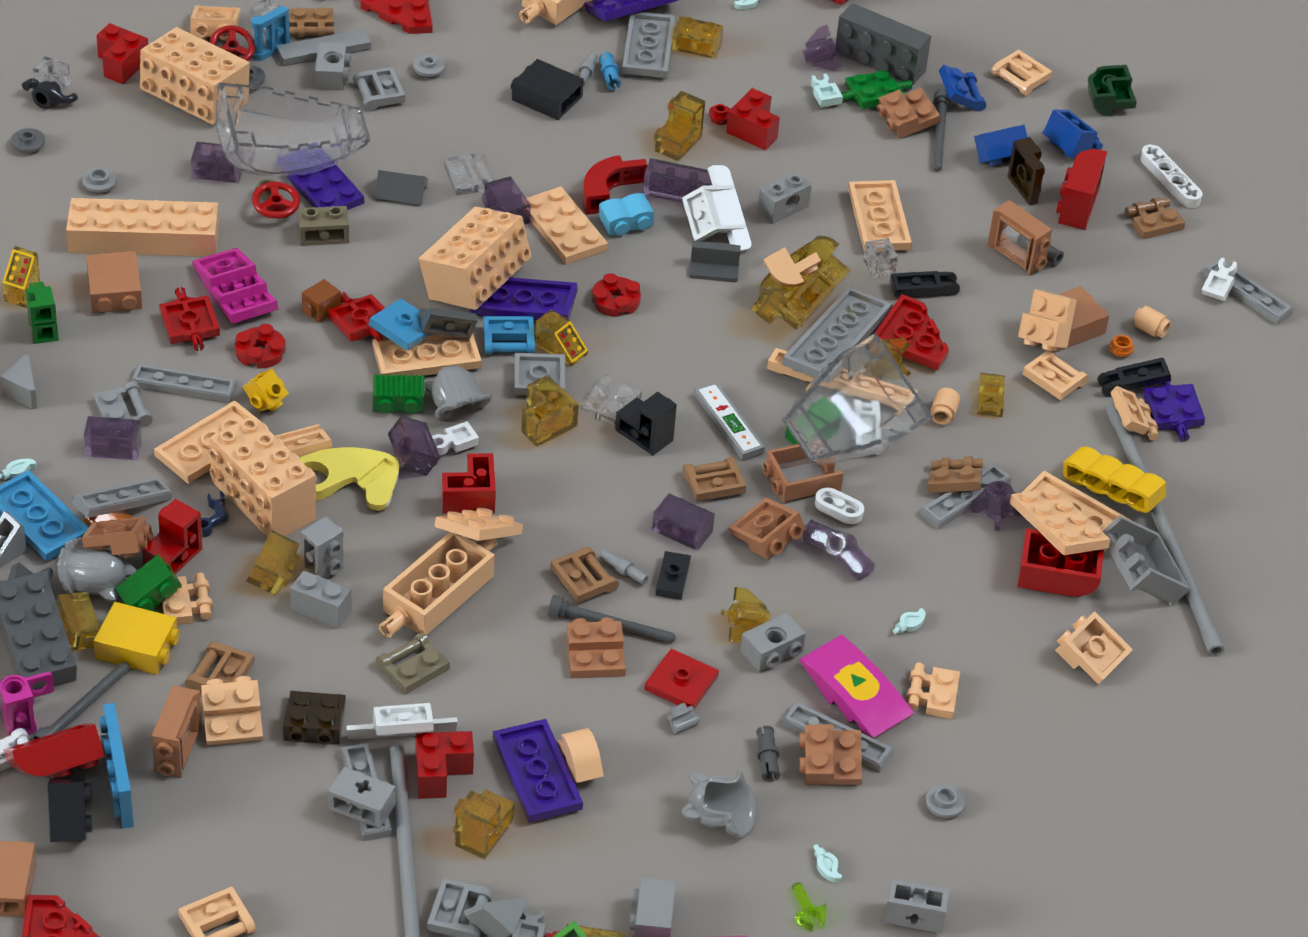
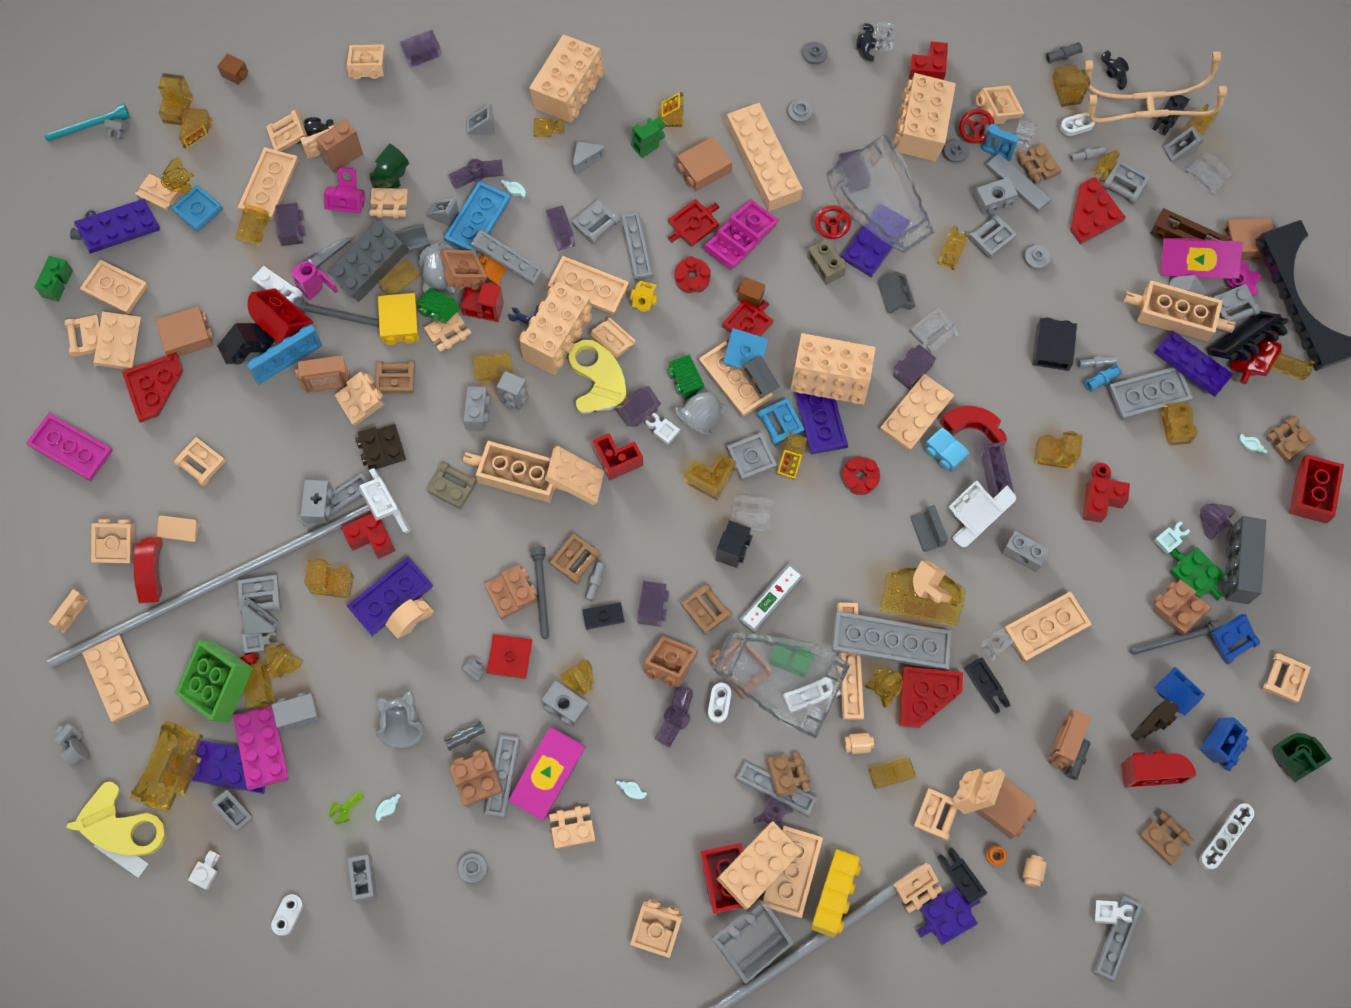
camera: 70 degrees right, 25 degrees up
(378, 128) = (952, 248): none -> clear yellow hinge
(572, 905) = (280, 661): none -> clear yellow brick

